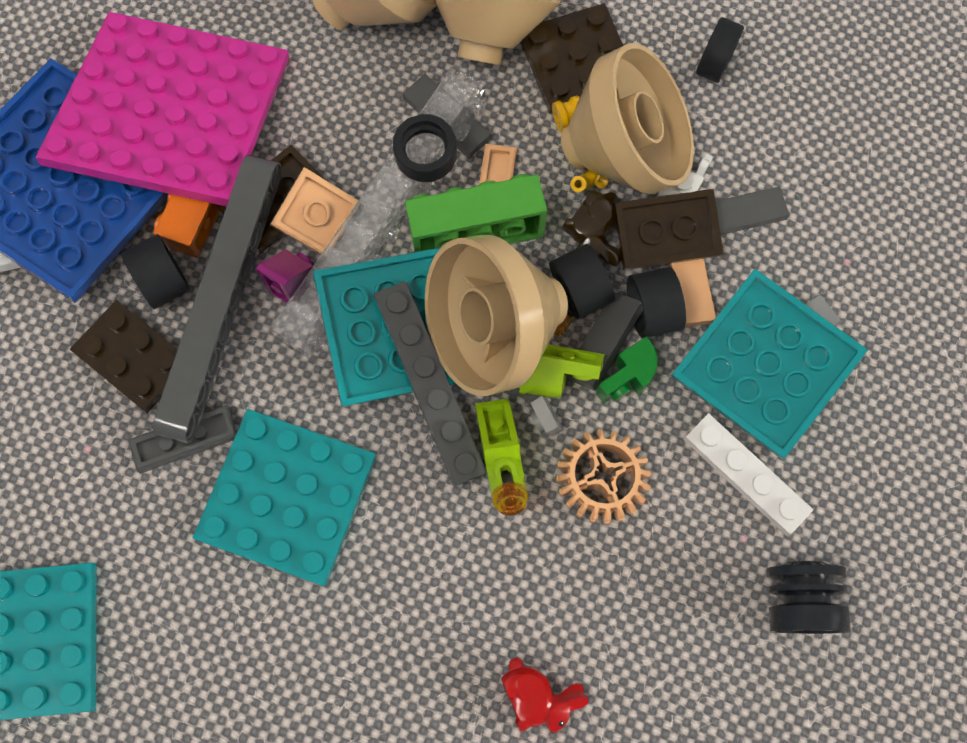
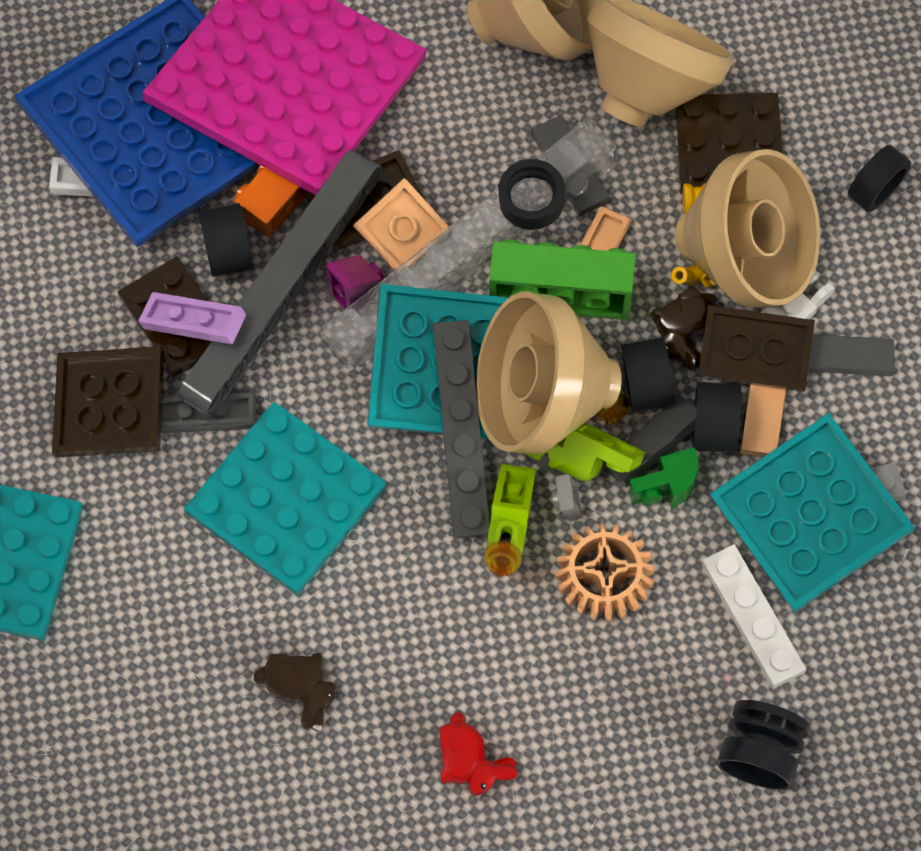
camera: 20 degrees right, 5 degrees down
(89, 458) = (108, 402): none -> dark brown plate
(144, 355) = (192, 318): none -> lavender plate
(355, 674) = (299, 680): none -> dark brown animal

